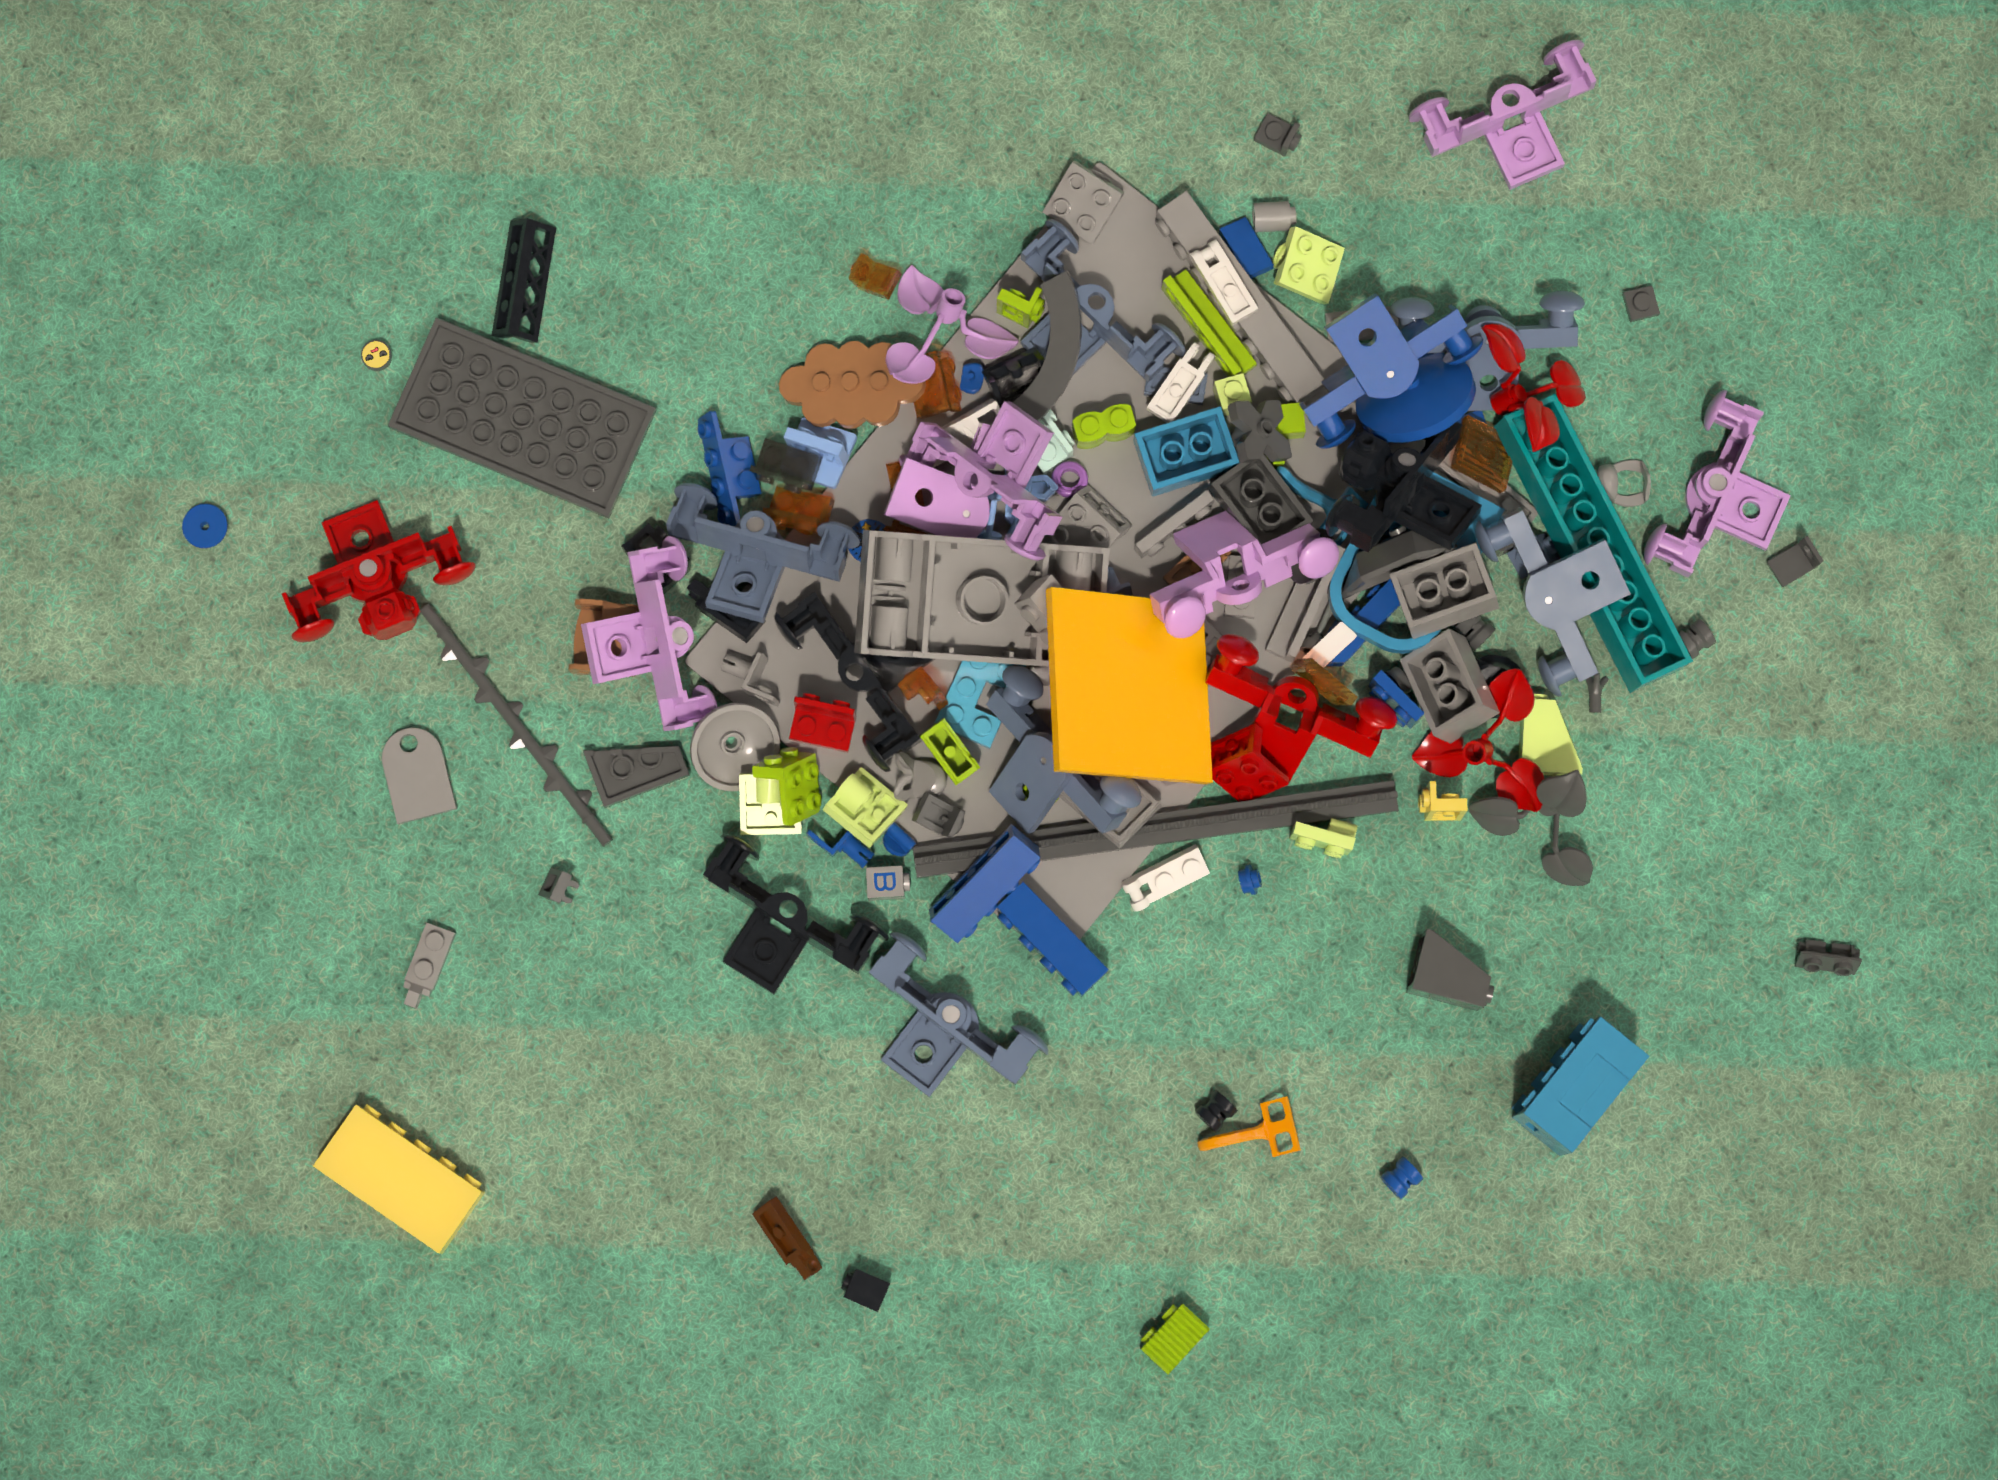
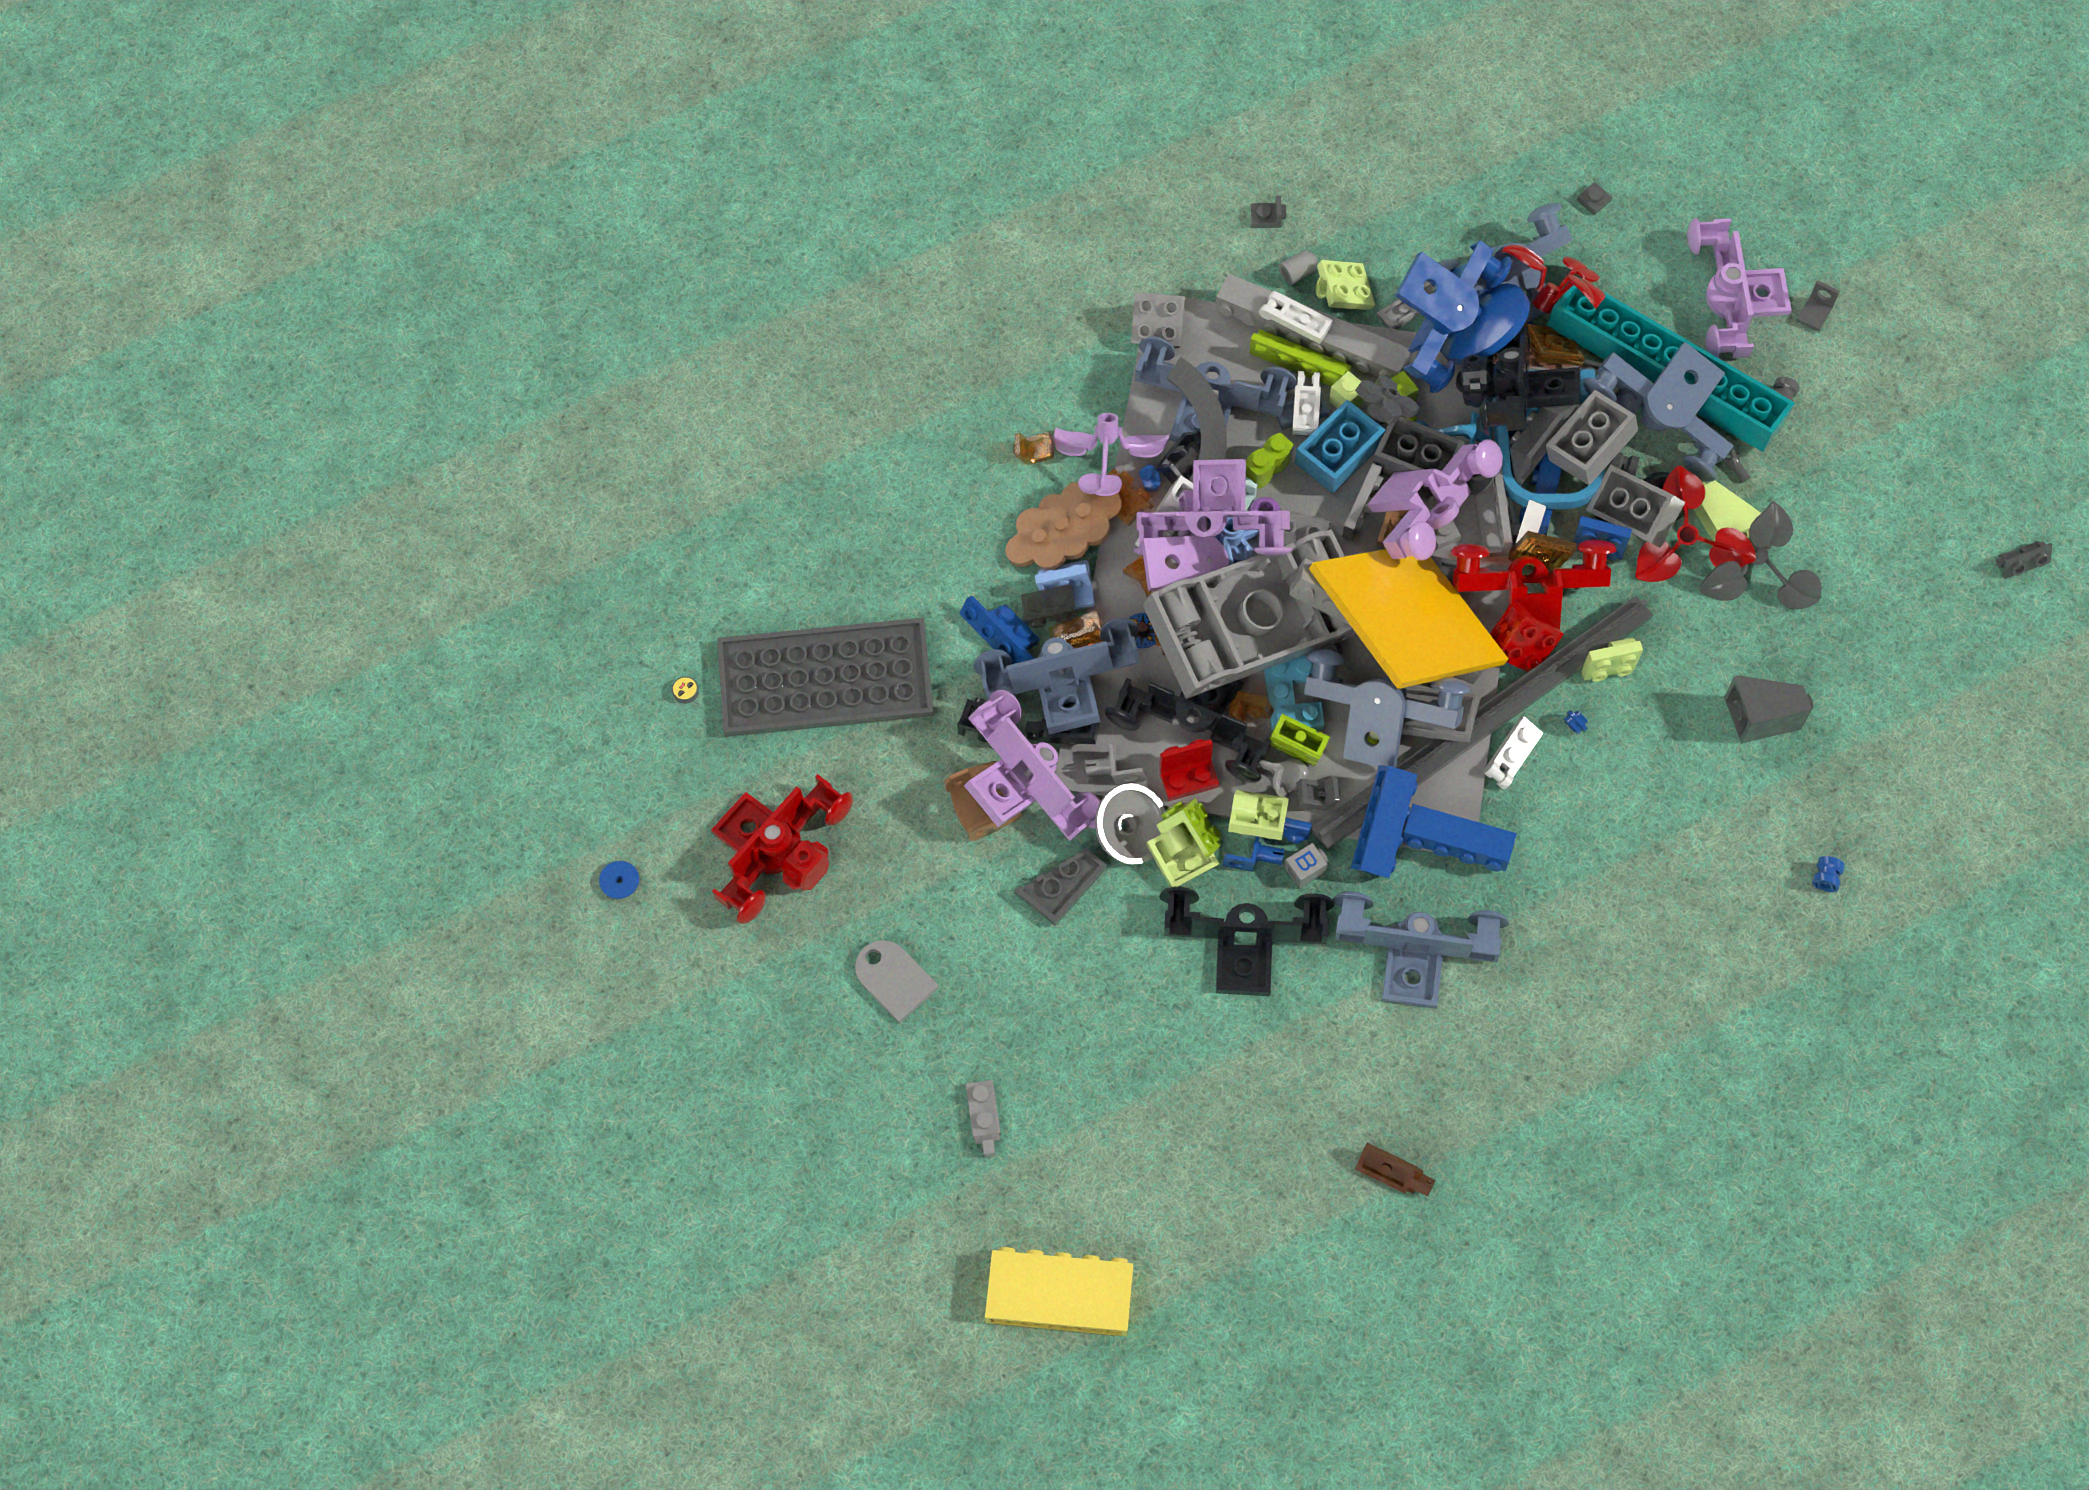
camera: 25 degrees left, 15 degrees down
(510, 712) = (959, 907): dark grey plant -> none
(515, 276) = (764, 579): black fence -> none
(556, 885) = (1052, 1001): dark grey tile -> none
(865, 1289) = (1480, 1177): black brick -> none
(1015, 307) = (1156, 408): lime bracket -> none
(1173, 1338) = (1738, 1084): lime brick -> none
(1216, 1111) = (1660, 899): black wheel -> none
(1246, 247) = (1296, 293): blue tile -> none
(1265, 1130) = (1704, 895): light orange piece -> none
(1447, 808) = (1682, 595): light yellow bracket -> none
(1523, 150) = (1448, 139): lavender piece -> none
(1579, 1085) = (1916, 732): dark azure container -> none
(1608, 476) = (1652, 313): light grey piece -> none

